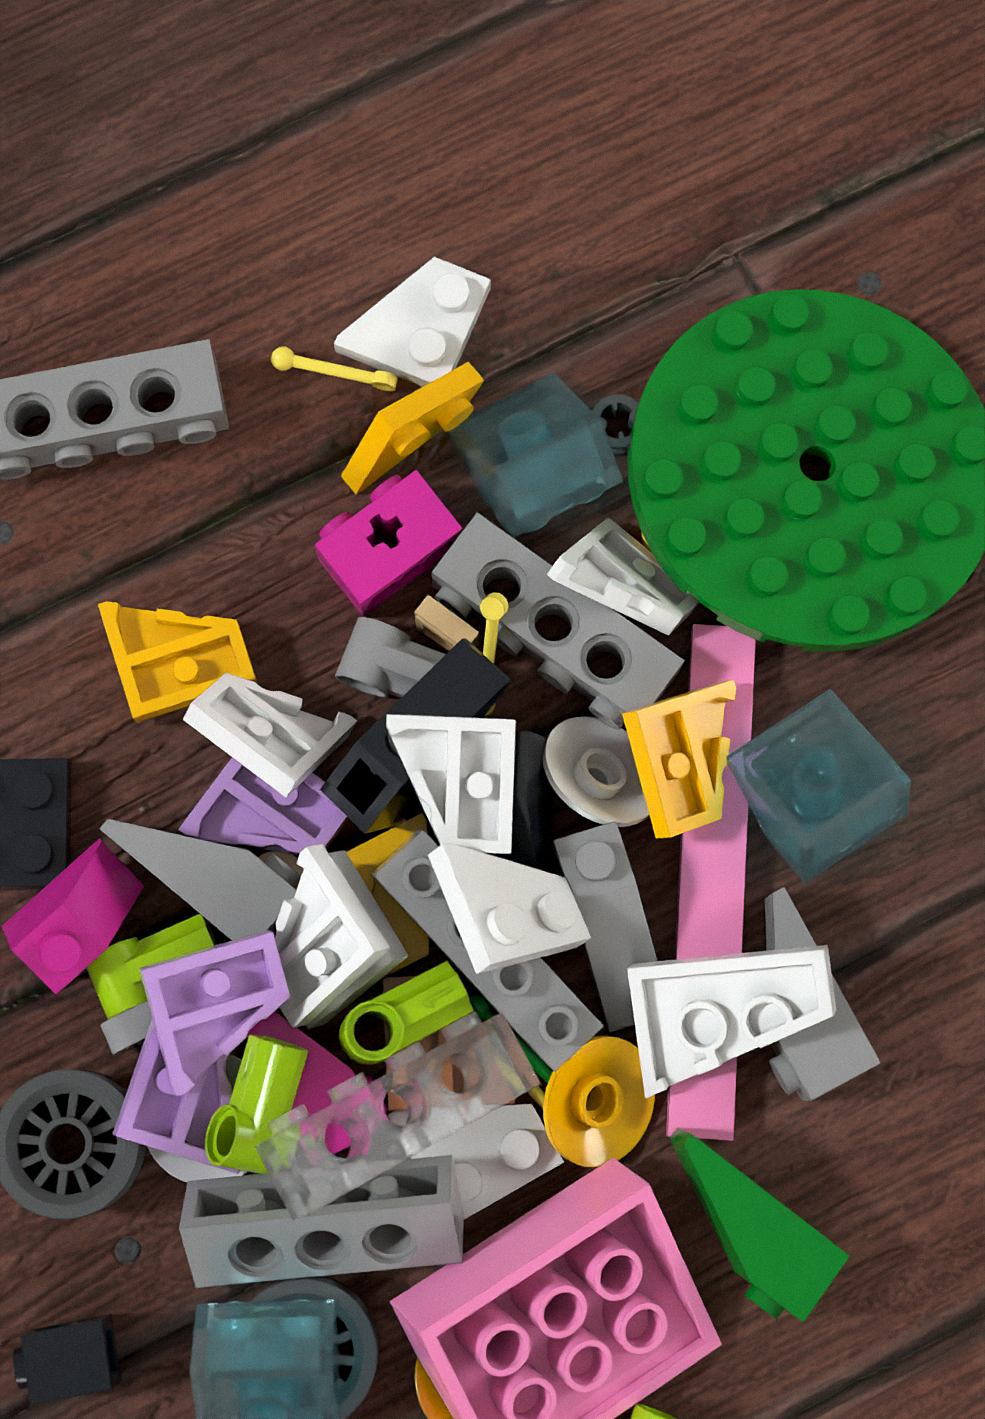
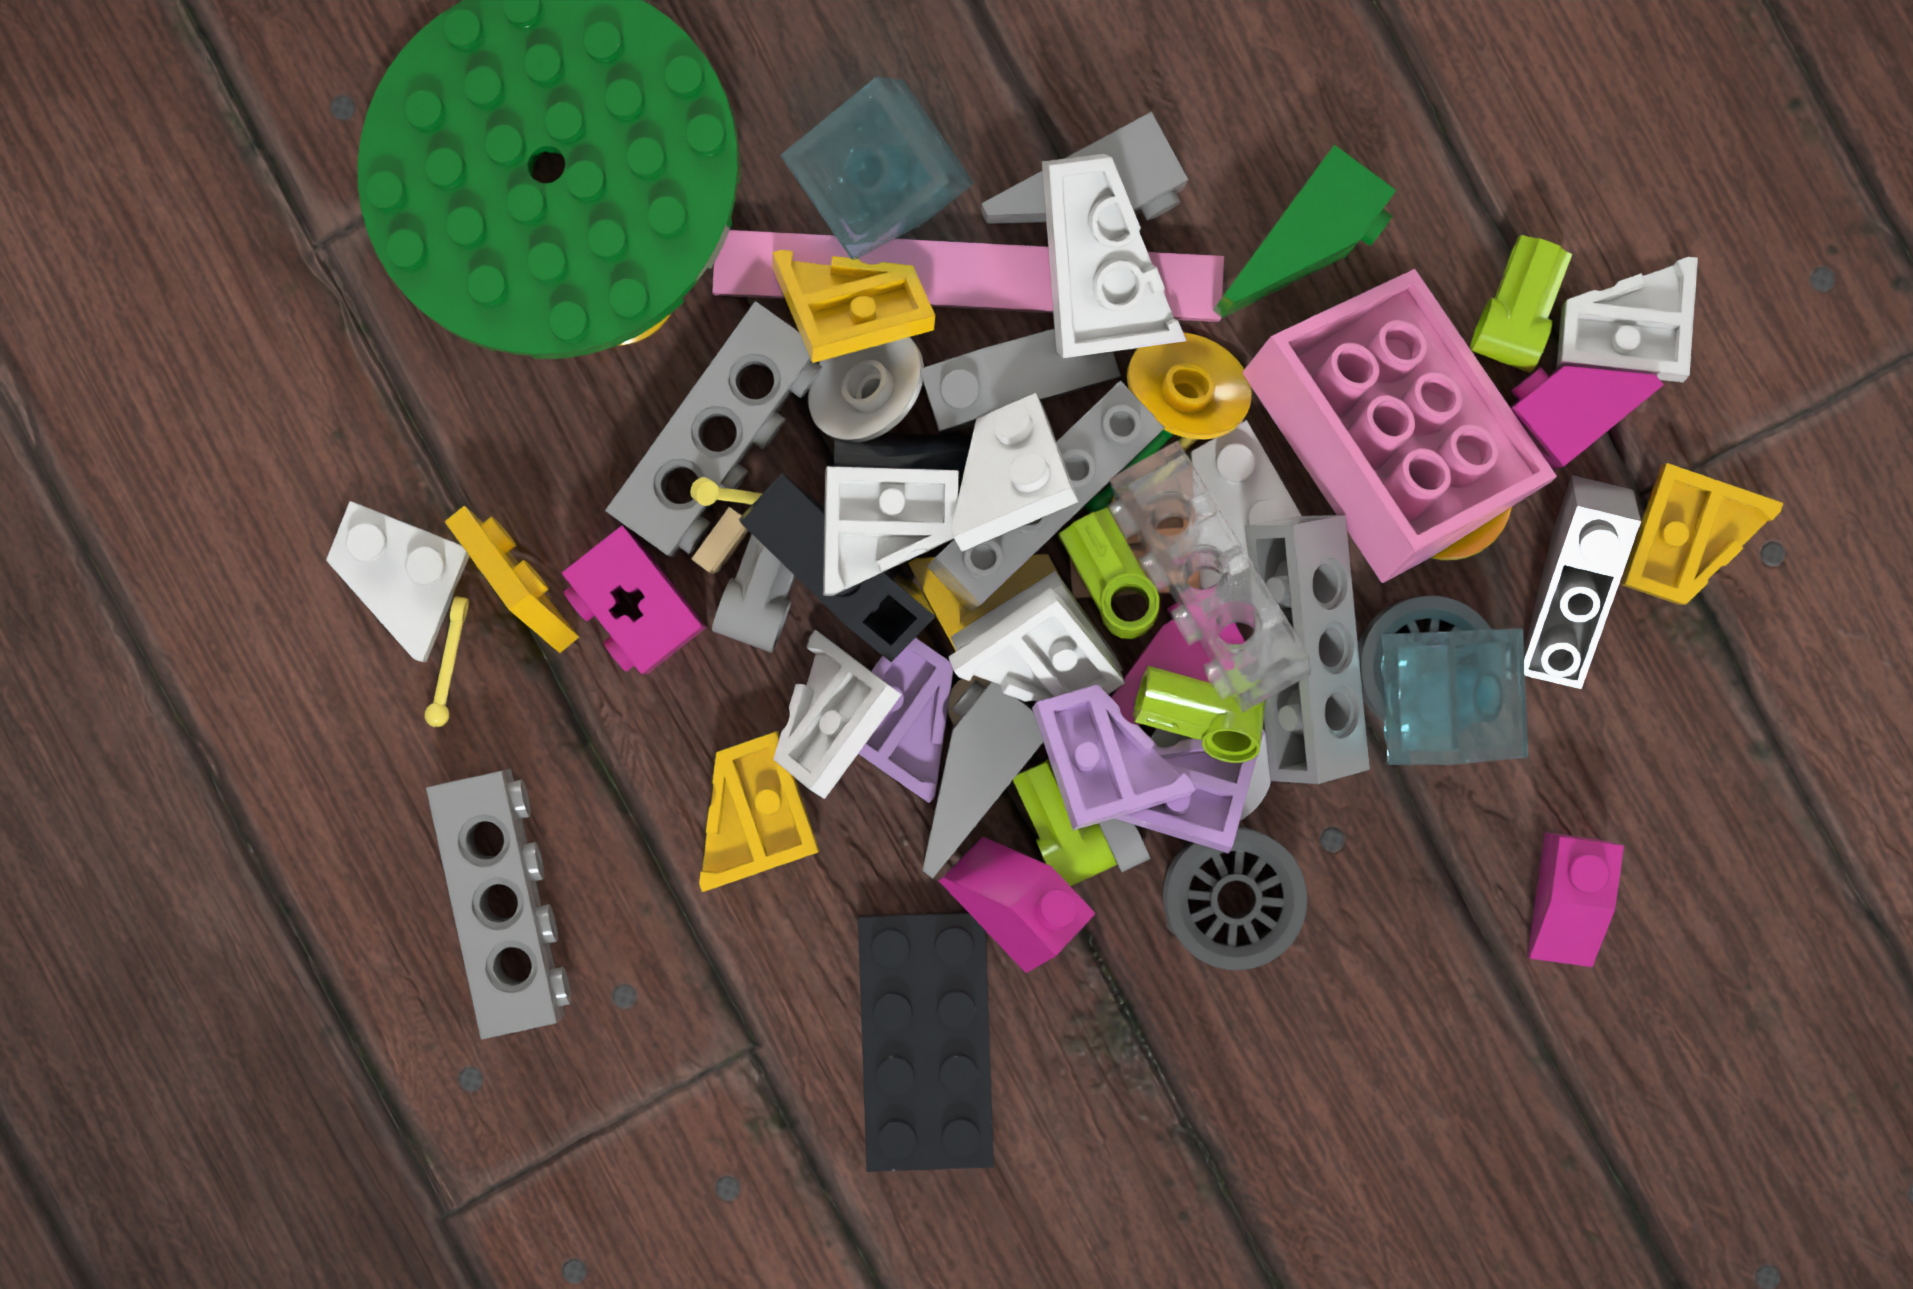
camera: 85 degrees left, 10 degrees up
(67, 1359) = (1436, 889): black brick -> none
(536, 454) = (537, 452): clear light blue slope -> none
(617, 404) = (505, 389): dark grey bush -> none
(623, 576) = (668, 362): white wing -> none

